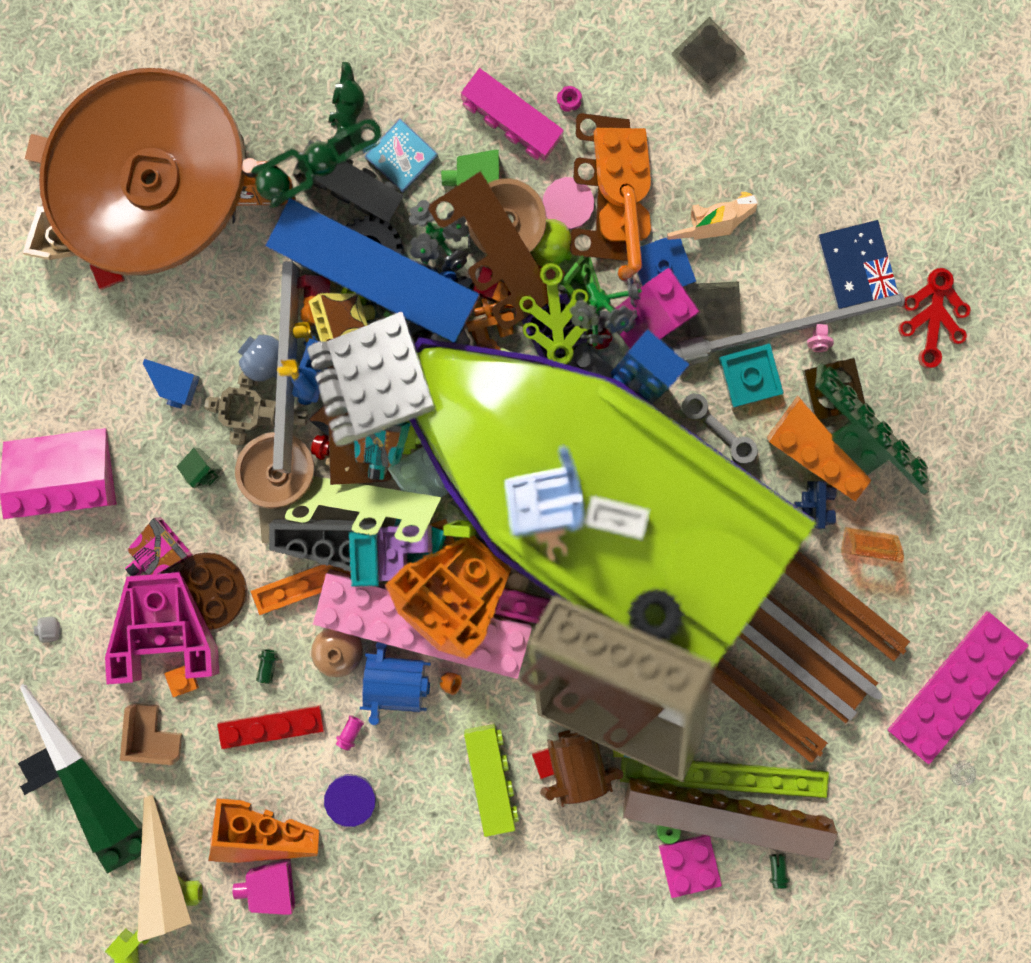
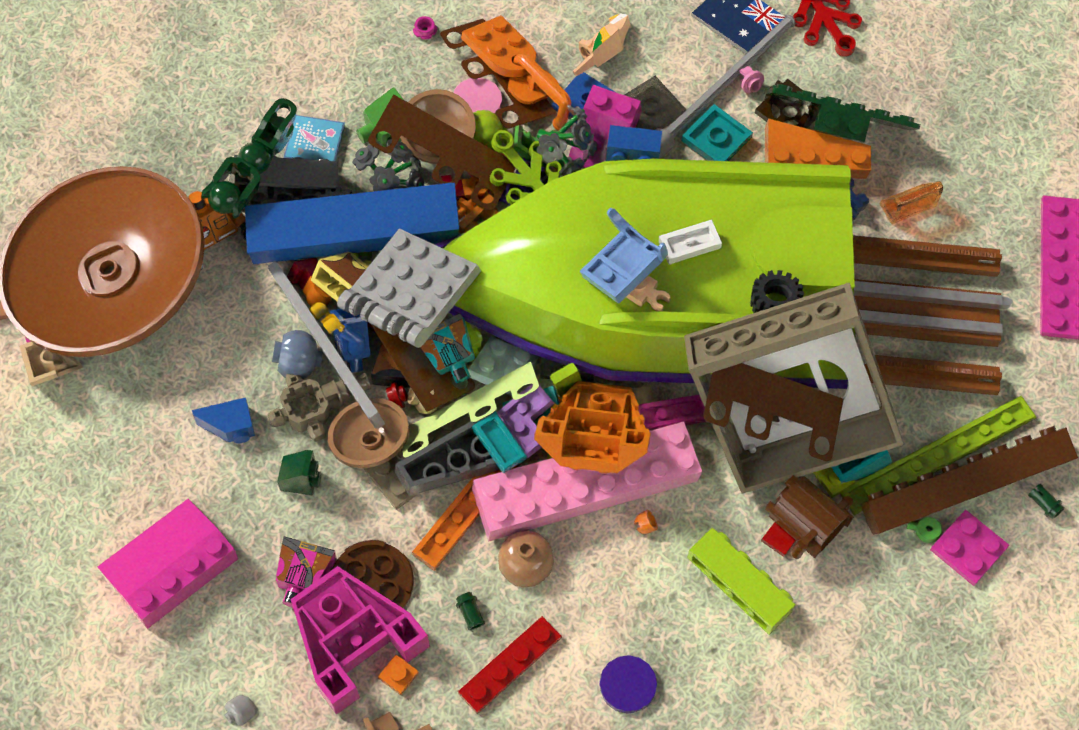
camera: 35 degrees left, 25 degrees down
(104, 278) = (112, 370): red tile -> none
(348, 100) = (241, 121): dark green animal -> none
(349, 733) = (586, 622): dark pink pin -> none
(393, 684) = (597, 546): blue container -> none
(511, 114) = (386, 62): dark pink brick -> none

